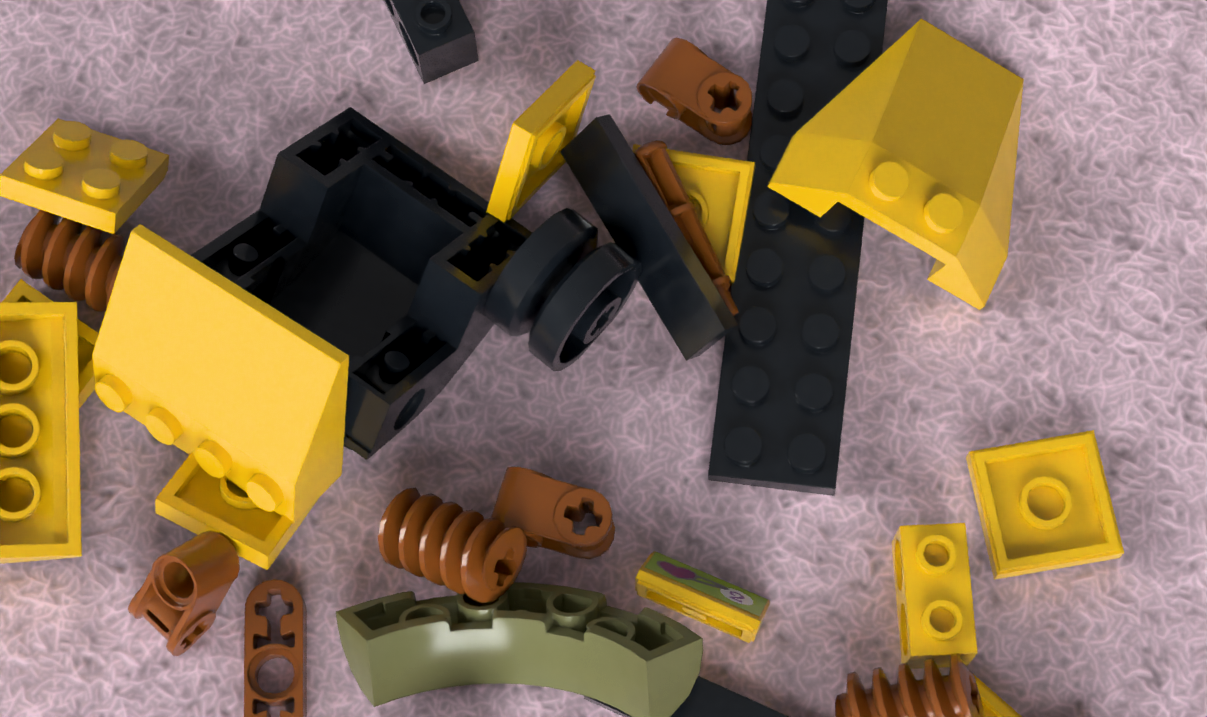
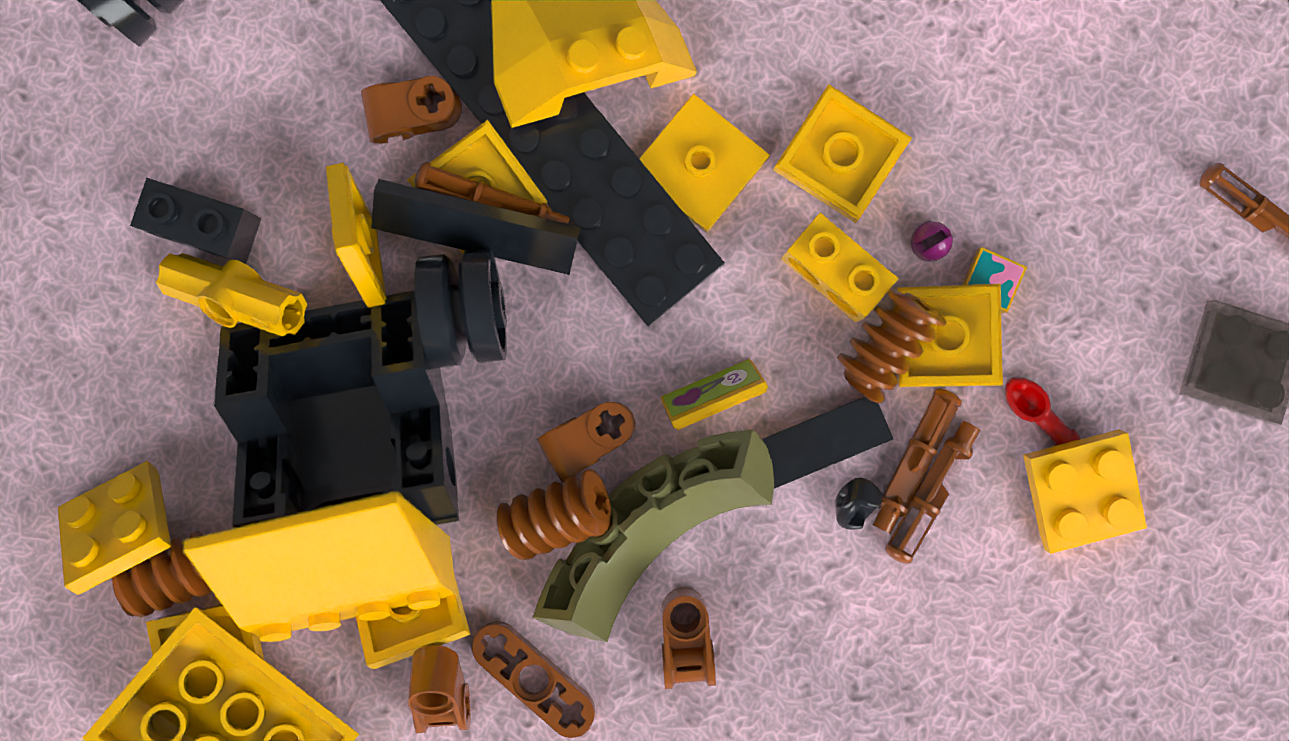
camera: 50 degrees left, 15 degrees up
(389, 90) = (232, 293): none -> yellow piece
(908, 388) = (703, 162): none -> yellow plate
(1047, 678) = (939, 249): none -> magenta hinge

